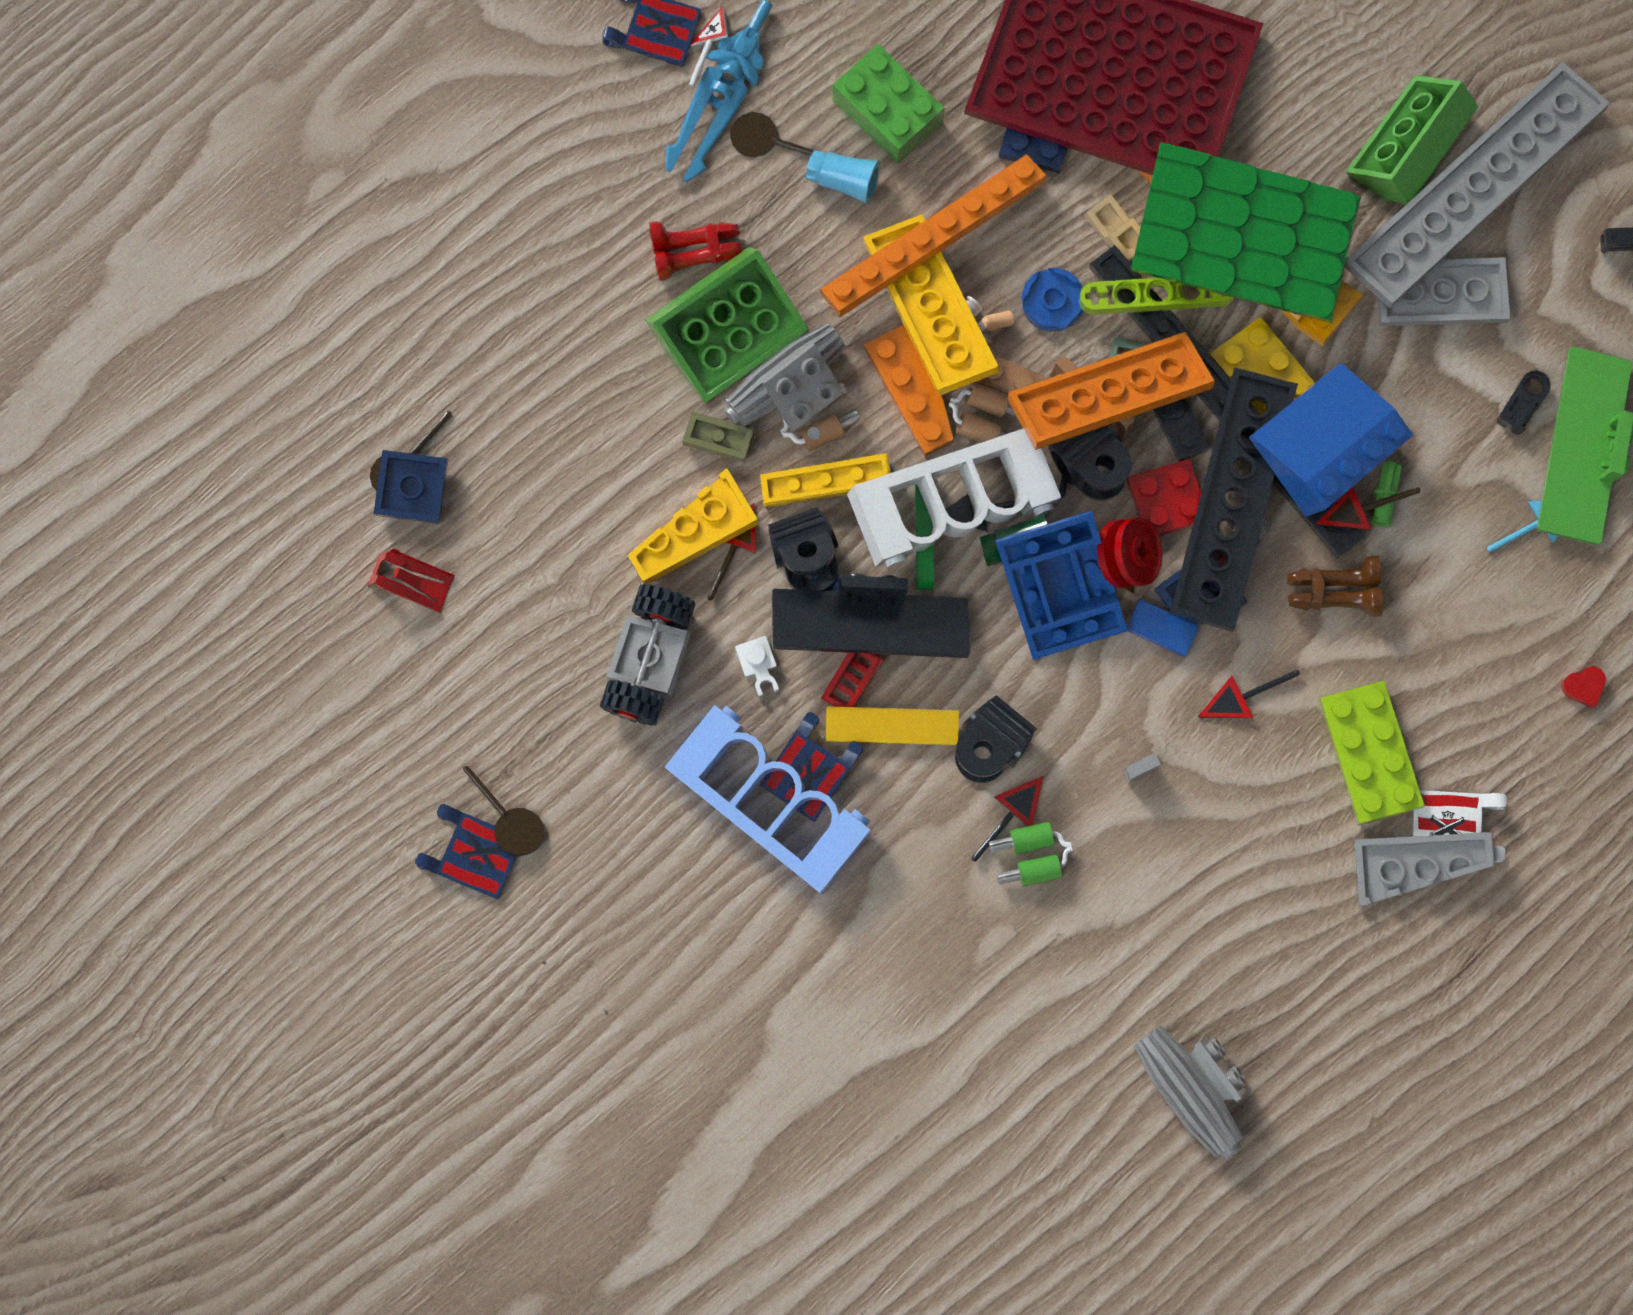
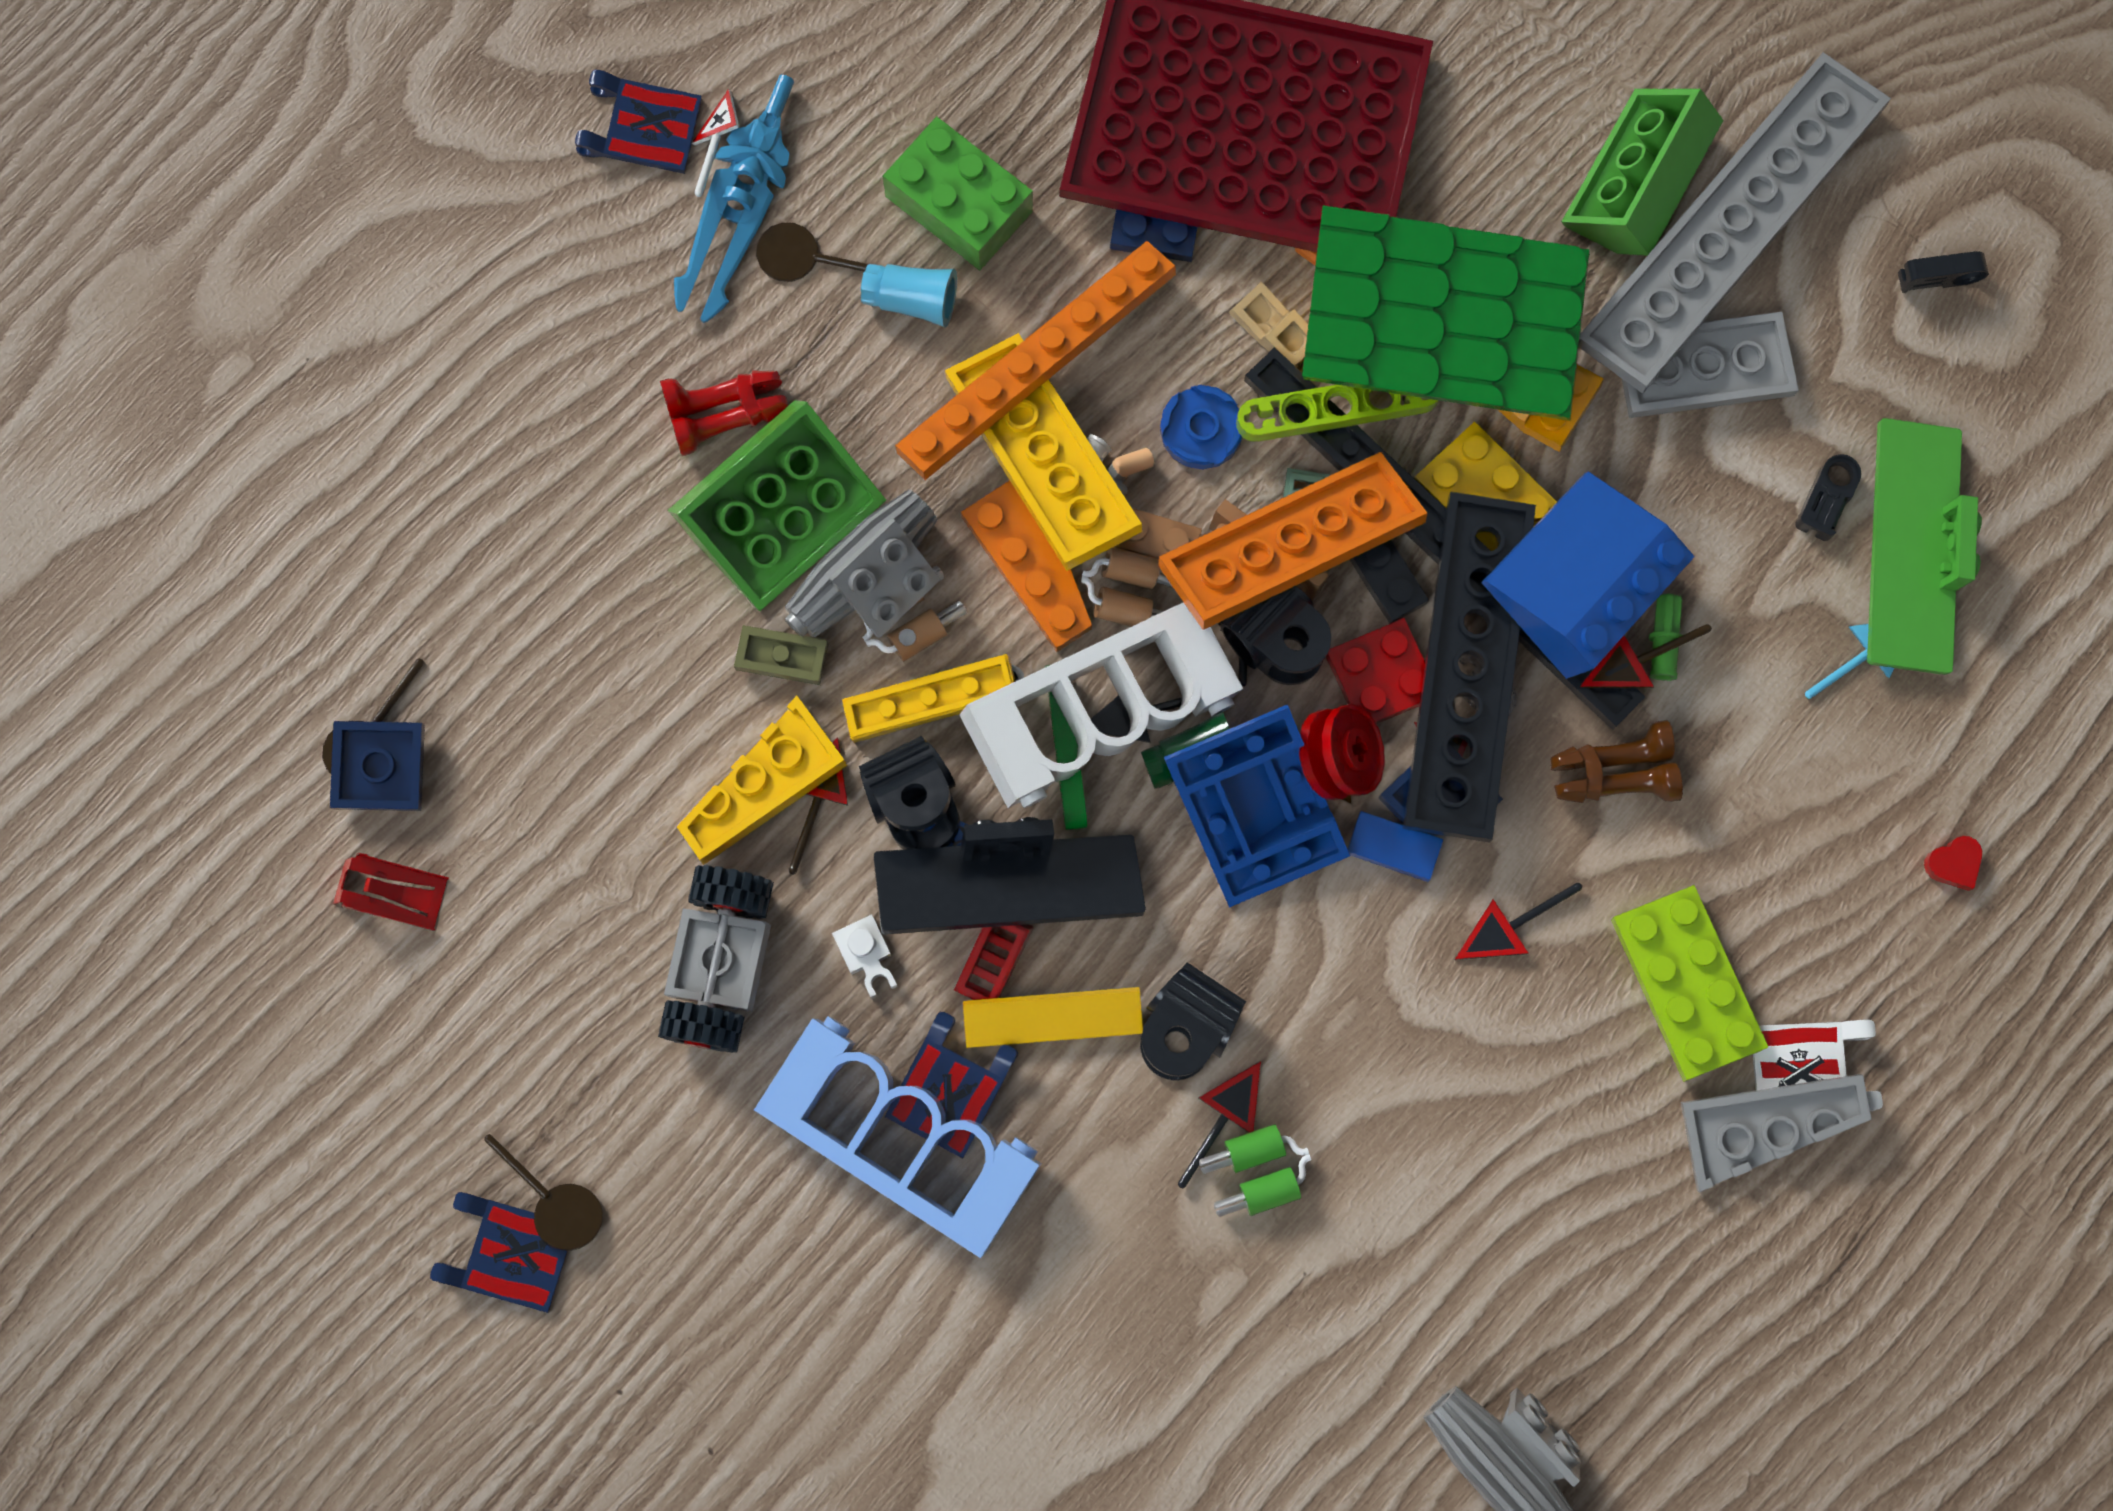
camera: 10 degrees left, 0 degrees up
(1141, 768) = (1389, 1038): light grey tile -> none

